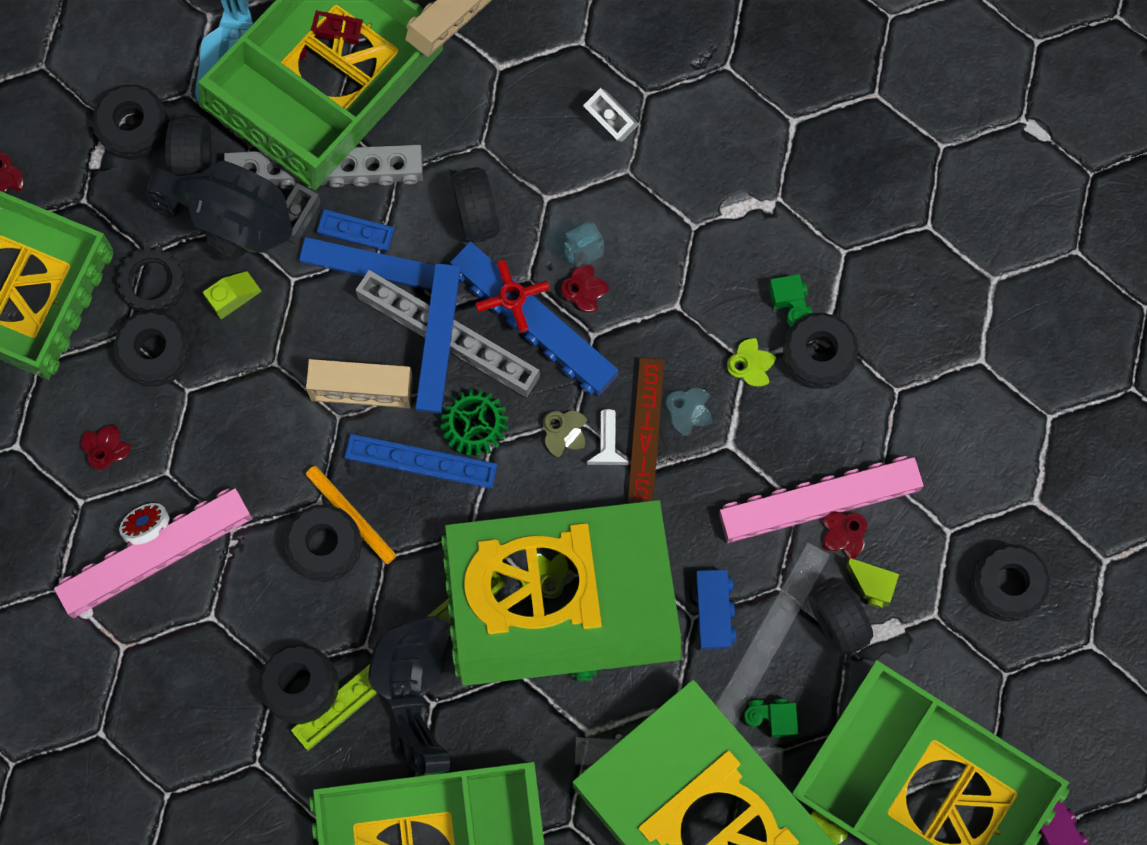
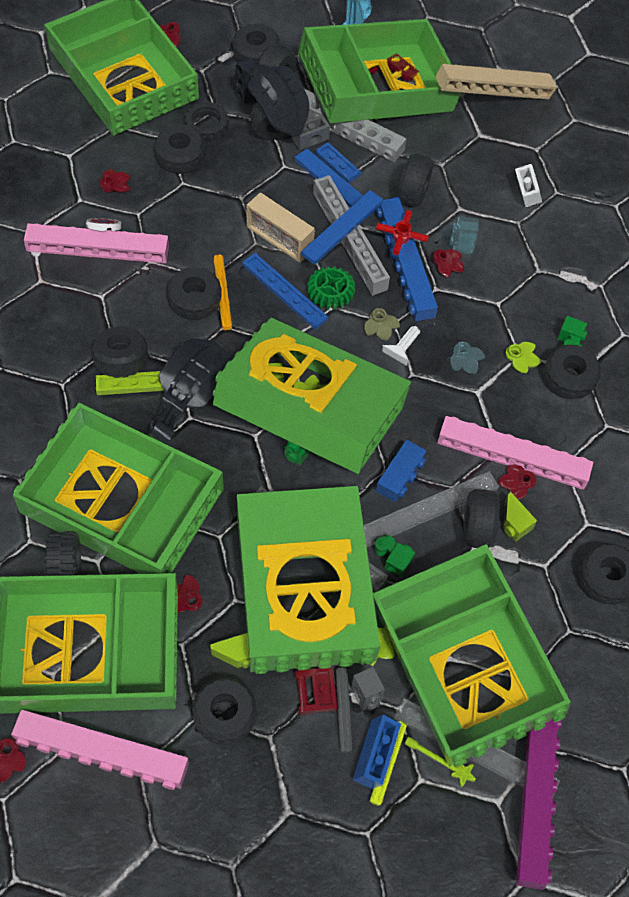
camera: 30 degrees right, 15 degrees down
(231, 293) = (244, 150): lime slope -> none
(646, 430) = (434, 350): reddish brown tile -> none

